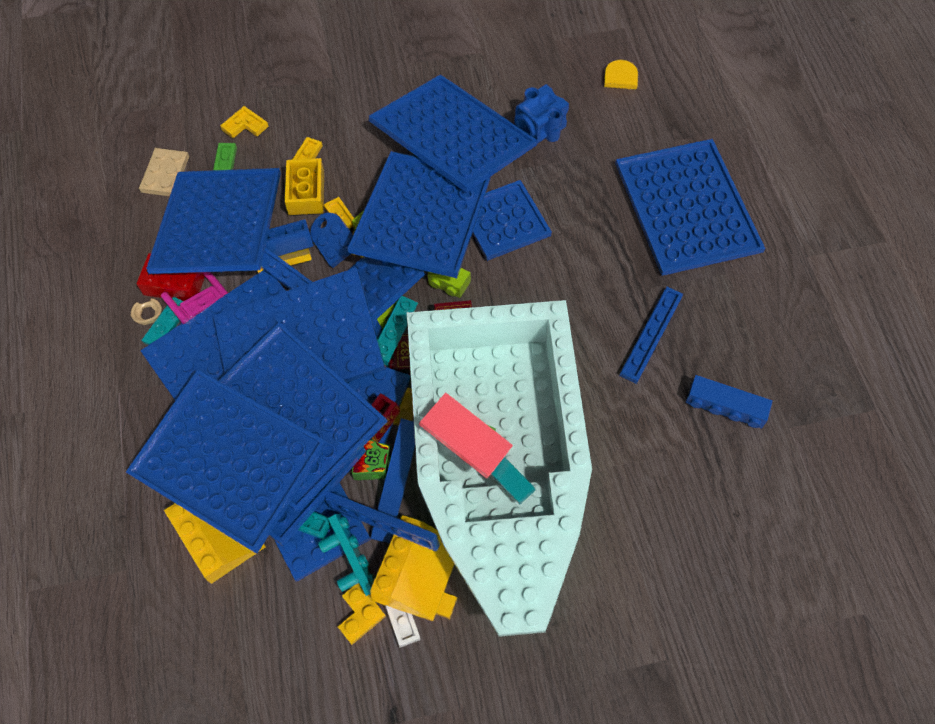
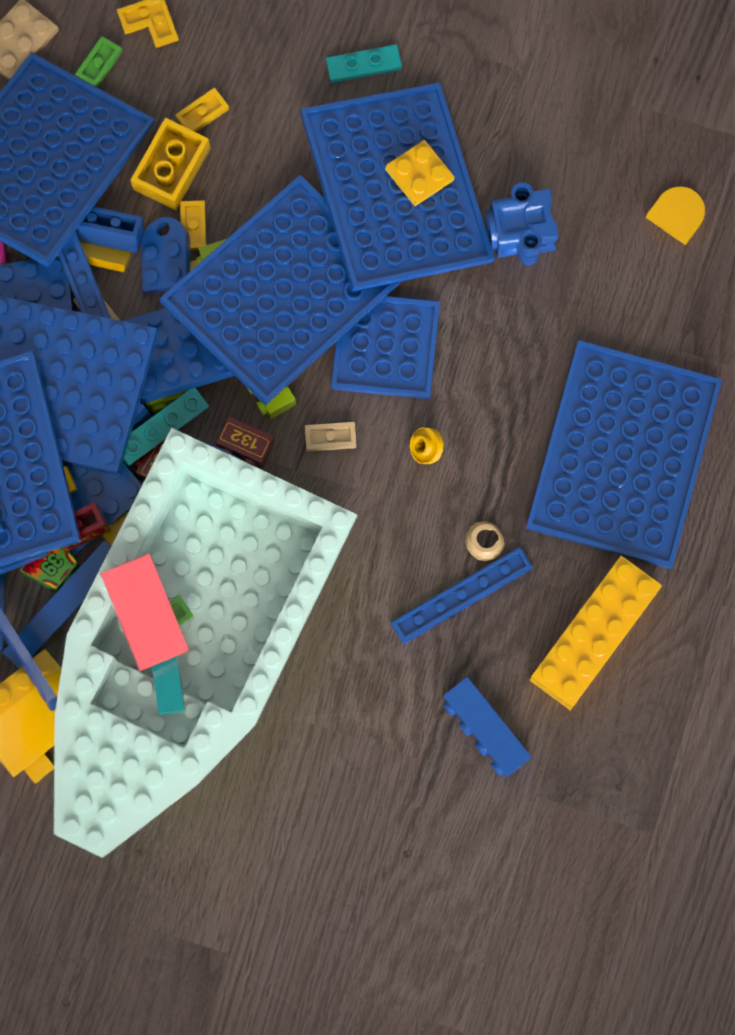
camera: 30 degrees right, 15 degrees up
(388, 88) = (363, 63): none -> teal plate
(462, 116) = (419, 173): none -> yellow plate
(505, 285) = (330, 436): none -> tan plate
(569, 259) = (426, 445): none -> yellow plate
(641, 302) = (476, 550): none -> tan piece
(751, 310) = (595, 633): none -> yellow brick

